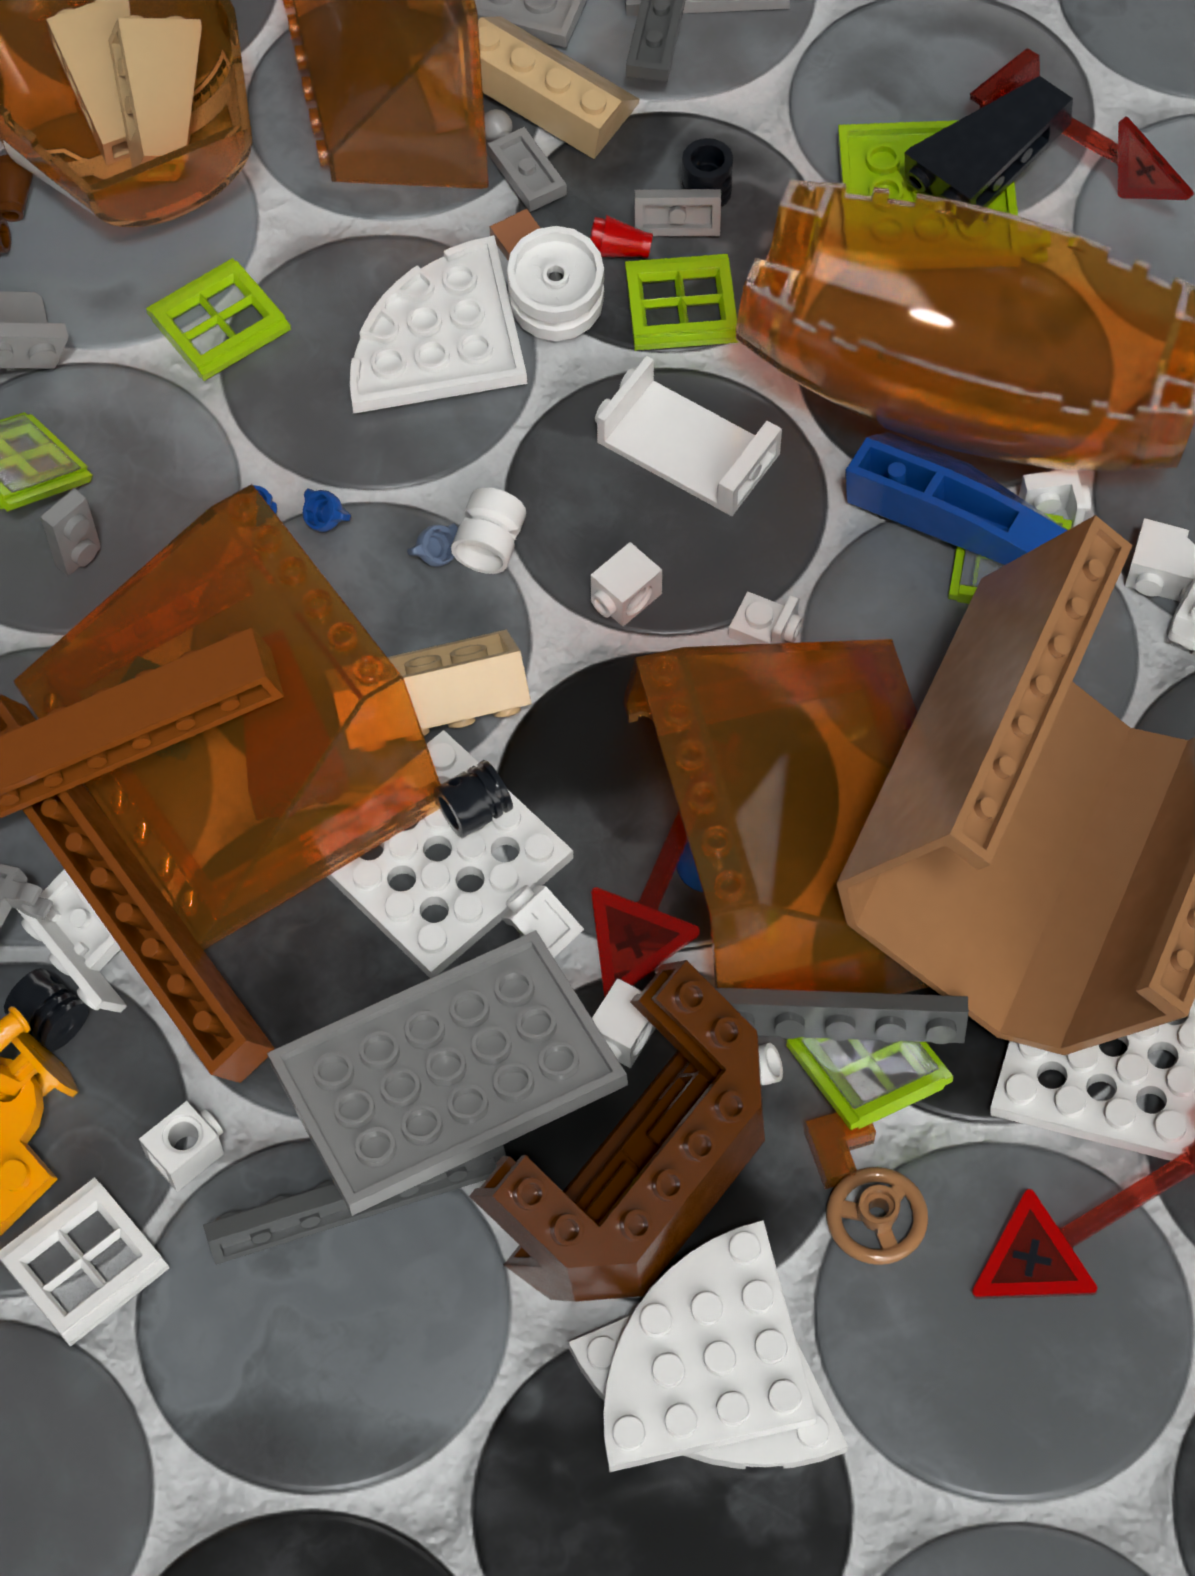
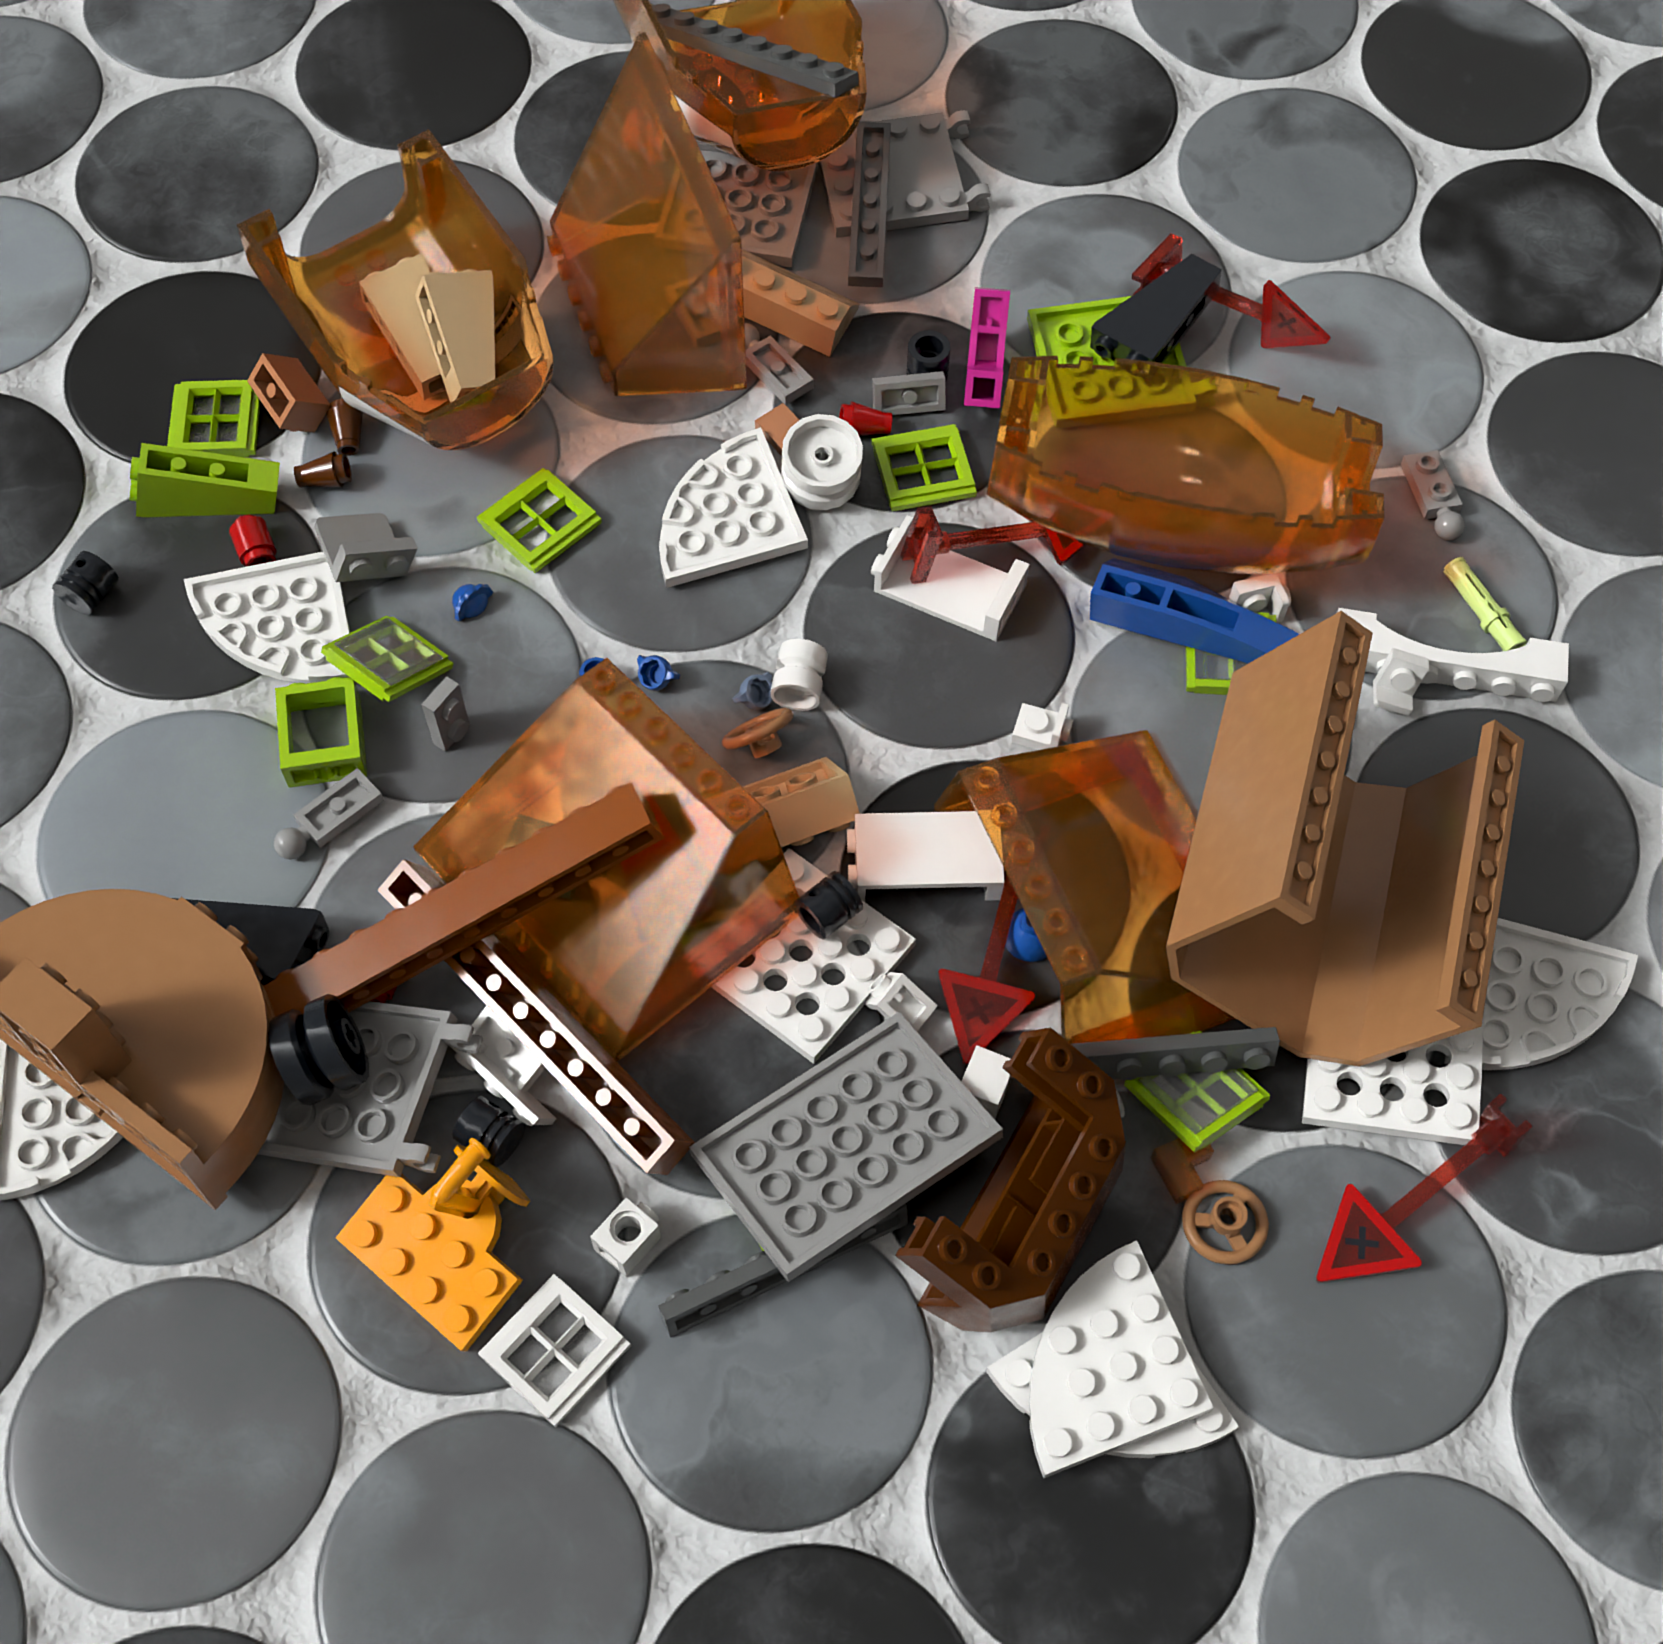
camera: 10 degrees left, 0 degrees up
(124, 405) = (470, 600): none -> blue piece
(431, 593) = (759, 732): none -> medium nougat piece
(588, 751) = (923, 852): none -> white panel
(625, 584) = (921, 708): white brick -> none
(663, 390) = (927, 540): none -> clear red piece
(779, 161) = (987, 347): none -> dark pink arch

